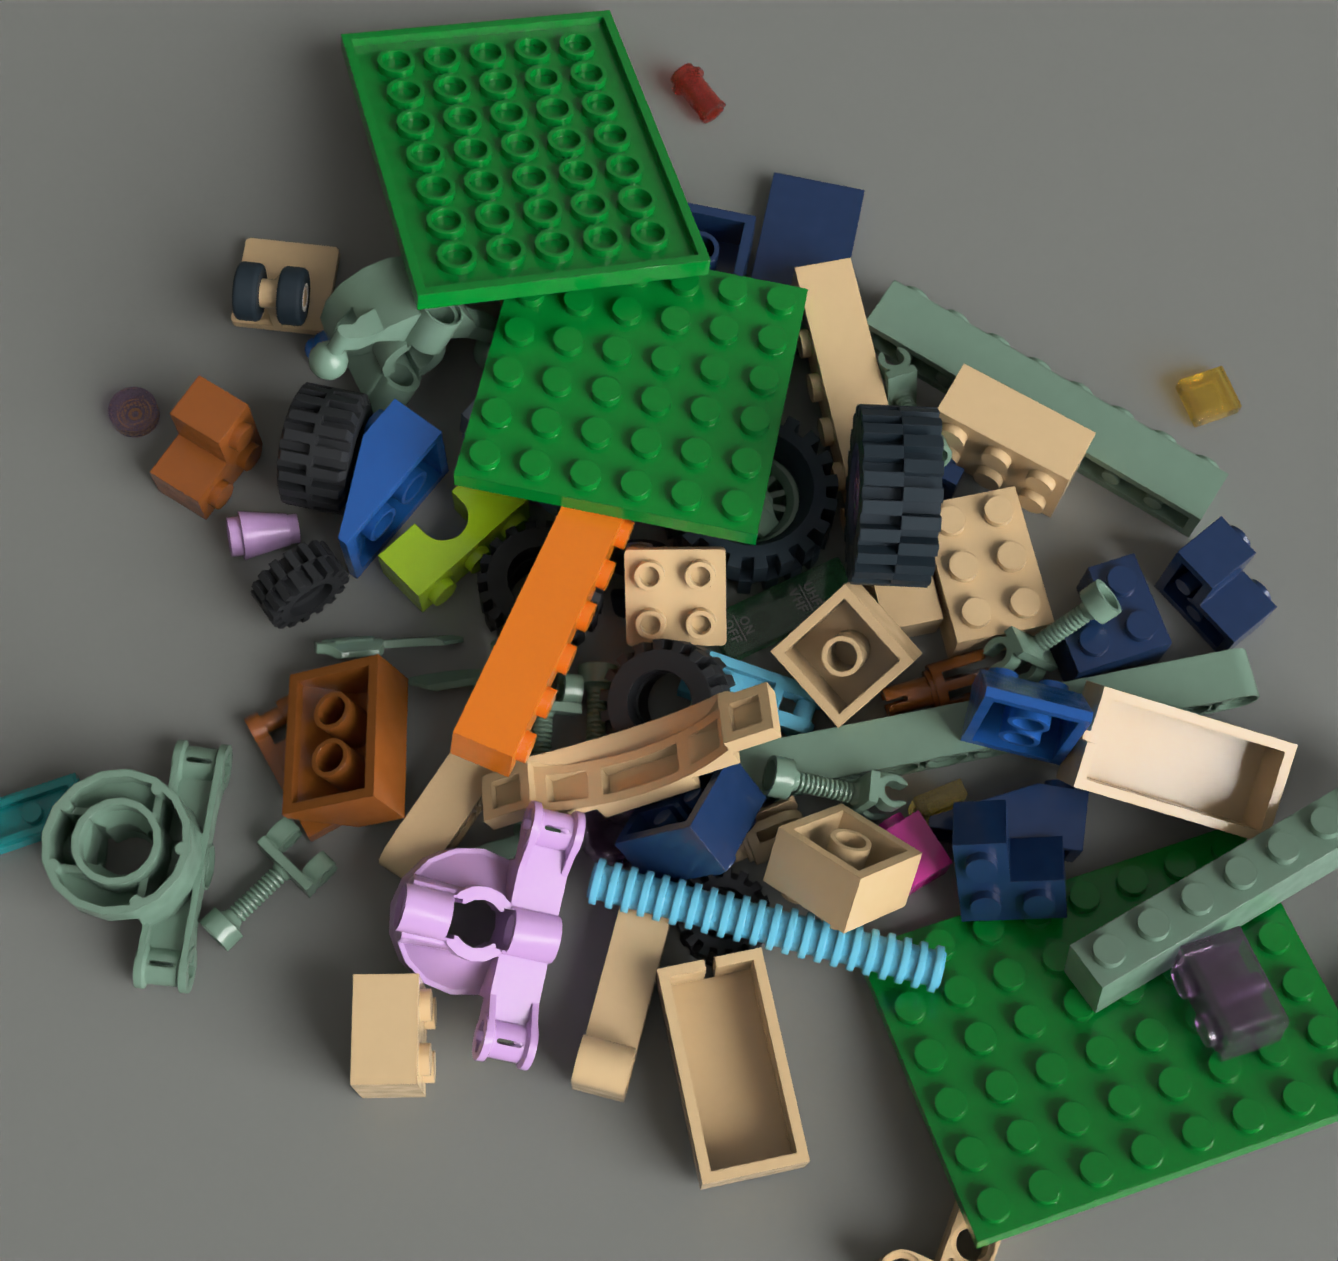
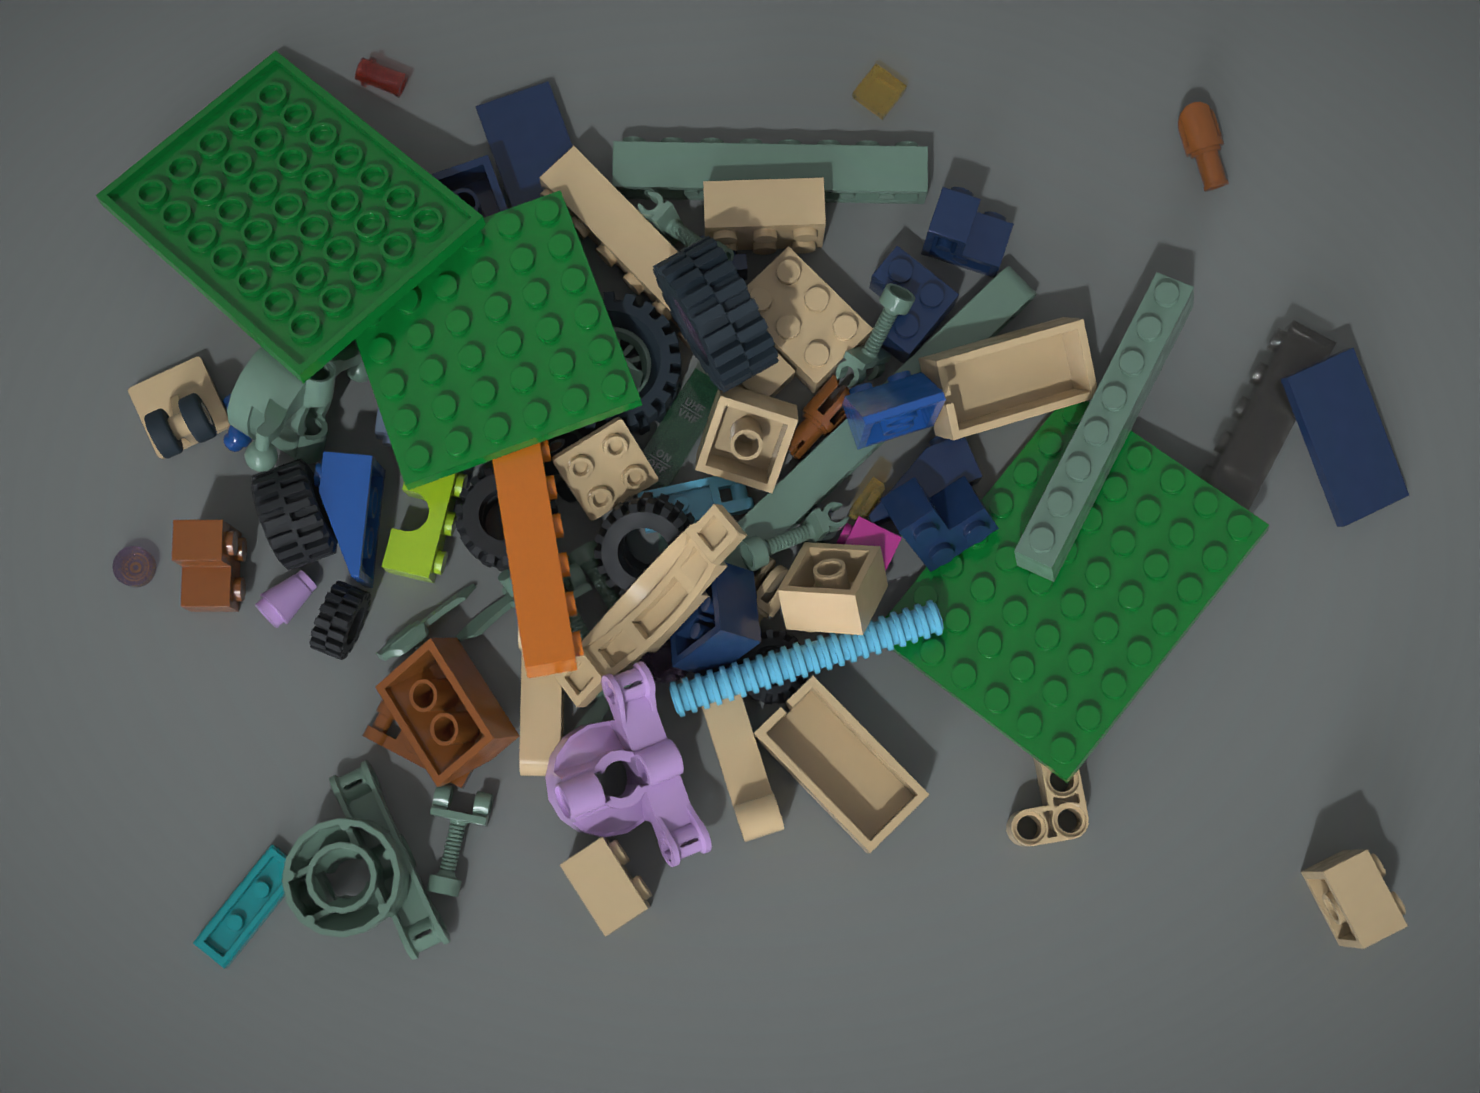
camera: 30 degrees left, 10 degrees up
(1229, 994) = (1133, 518): clear purple brick -> none

